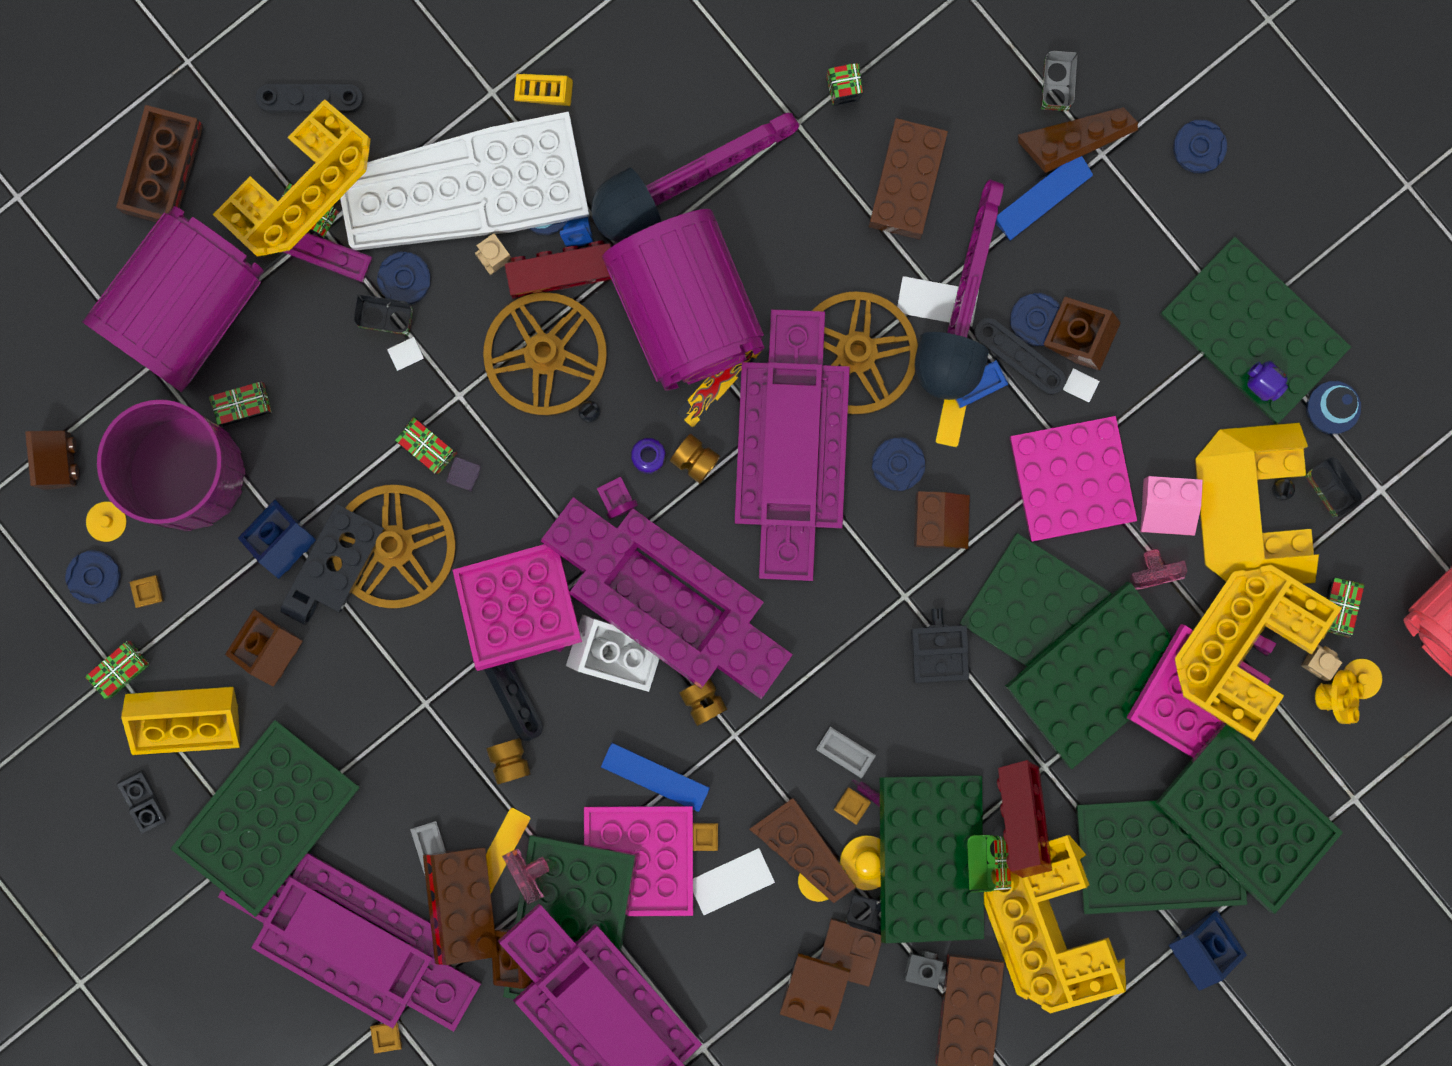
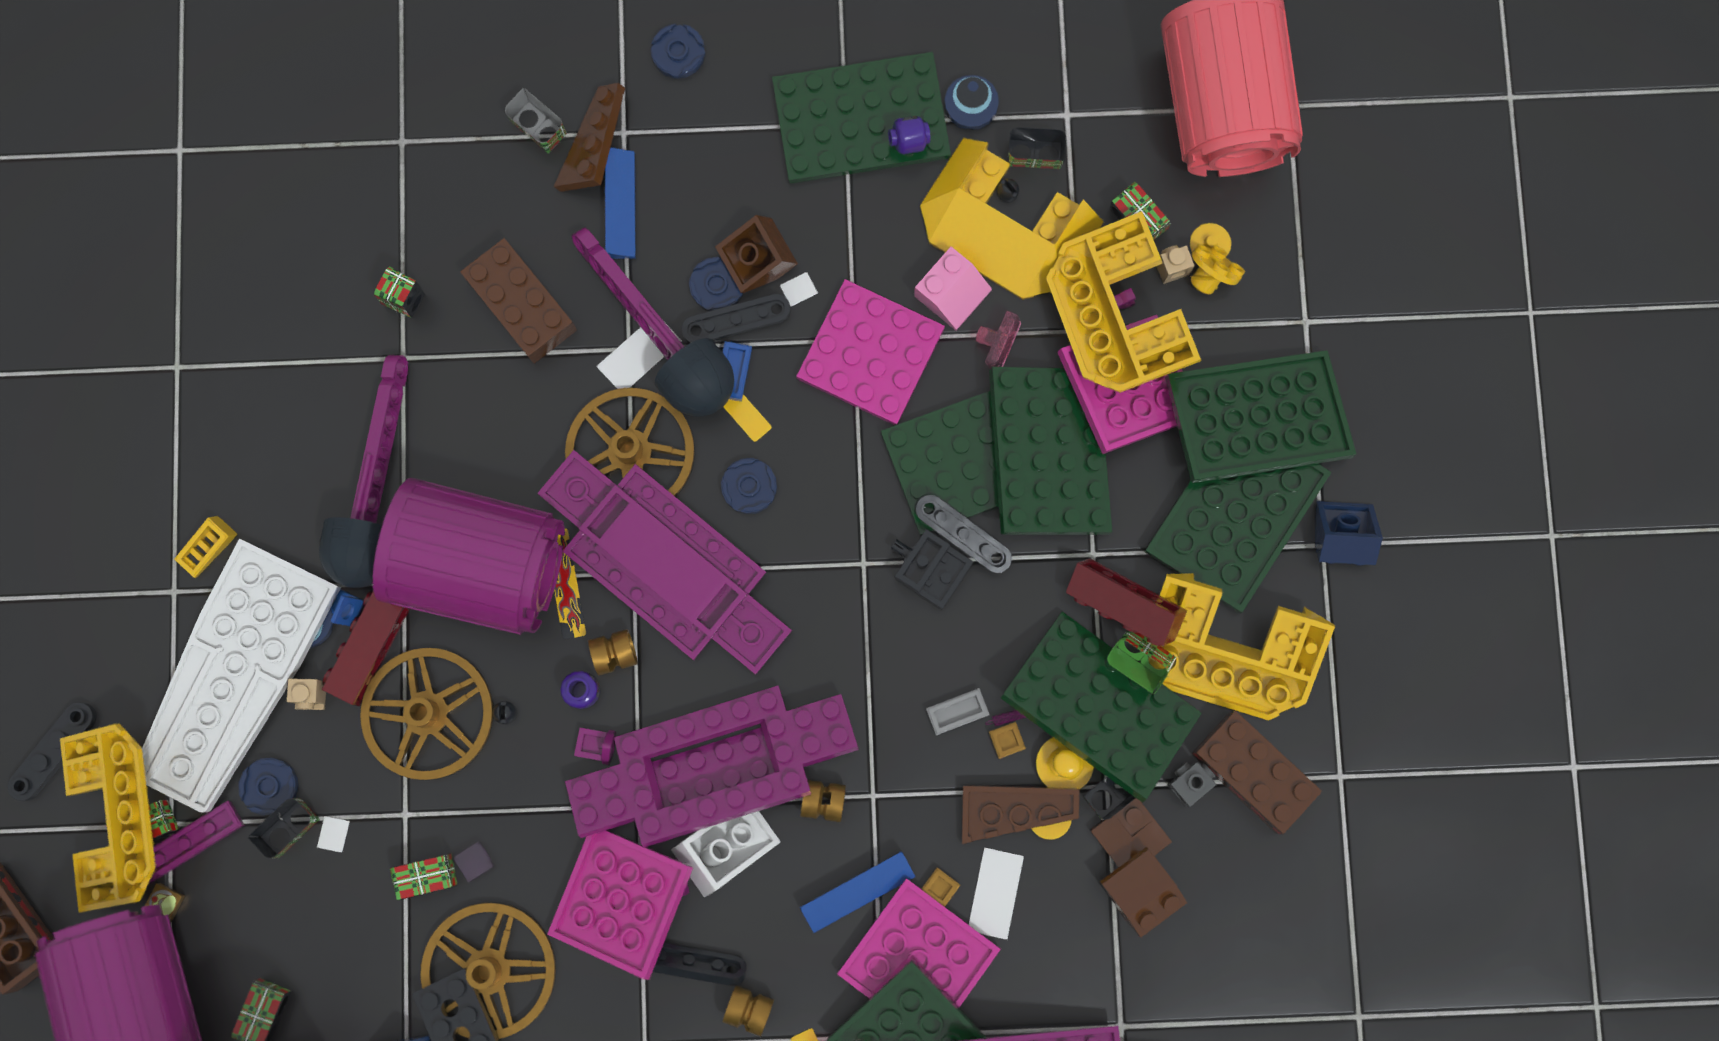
camera: 50 degrees left, 5 degrees down
(269, 265) = (168, 899): none -> tile
(941, 520) = (822, 485): reddish brown slope -> none
(984, 655) = (963, 533): none -> plate

